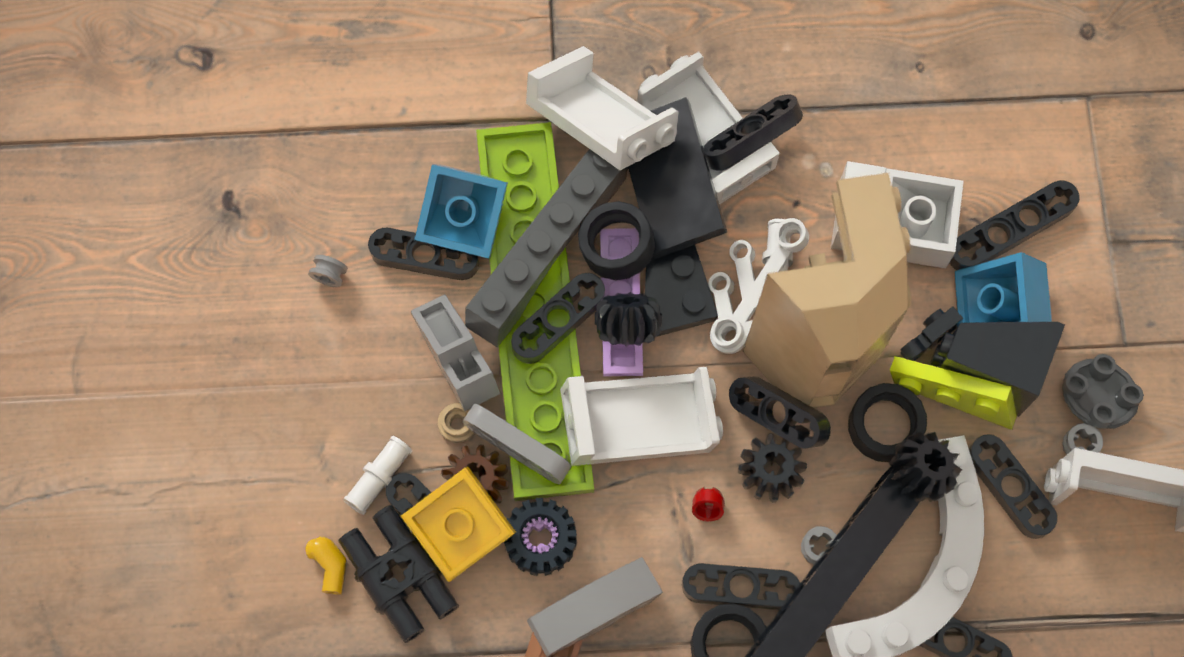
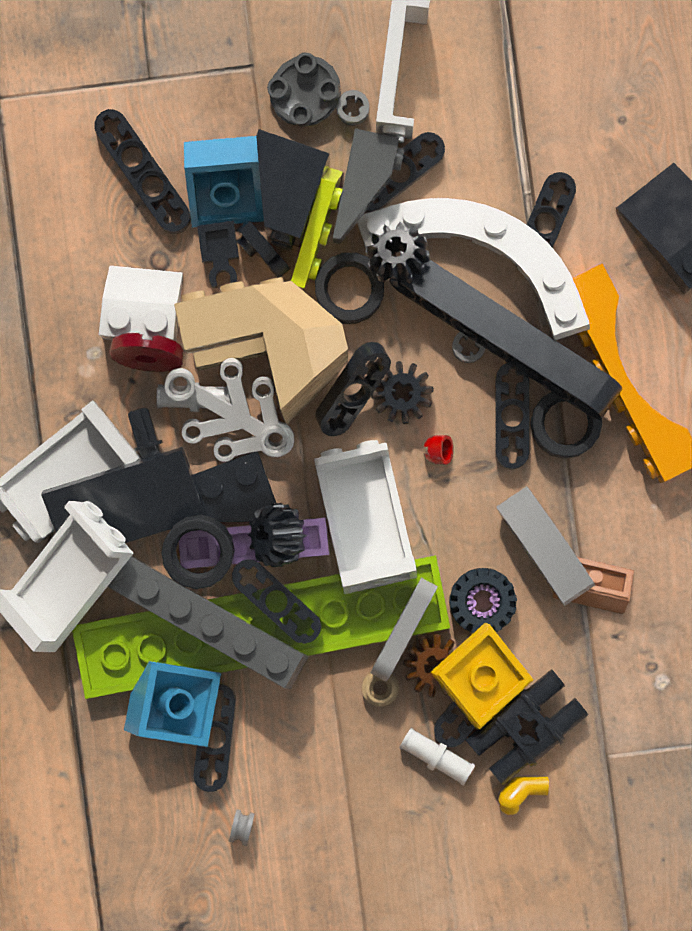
camera: 90 degrees left, 15 degrees up
(455, 352) = (313, 697): light grey slope -> none
(743, 206) = (144, 433): none -> black axle
(753, 132) = (55, 423): black beam -> none
(820, 214) = (146, 355): none -> dark red tile
(930, 214) = (148, 263): white slope -> none
(936, 292) = (218, 246): none -> black plate
(1009, 442) = (367, 174): none -> dark grey slope

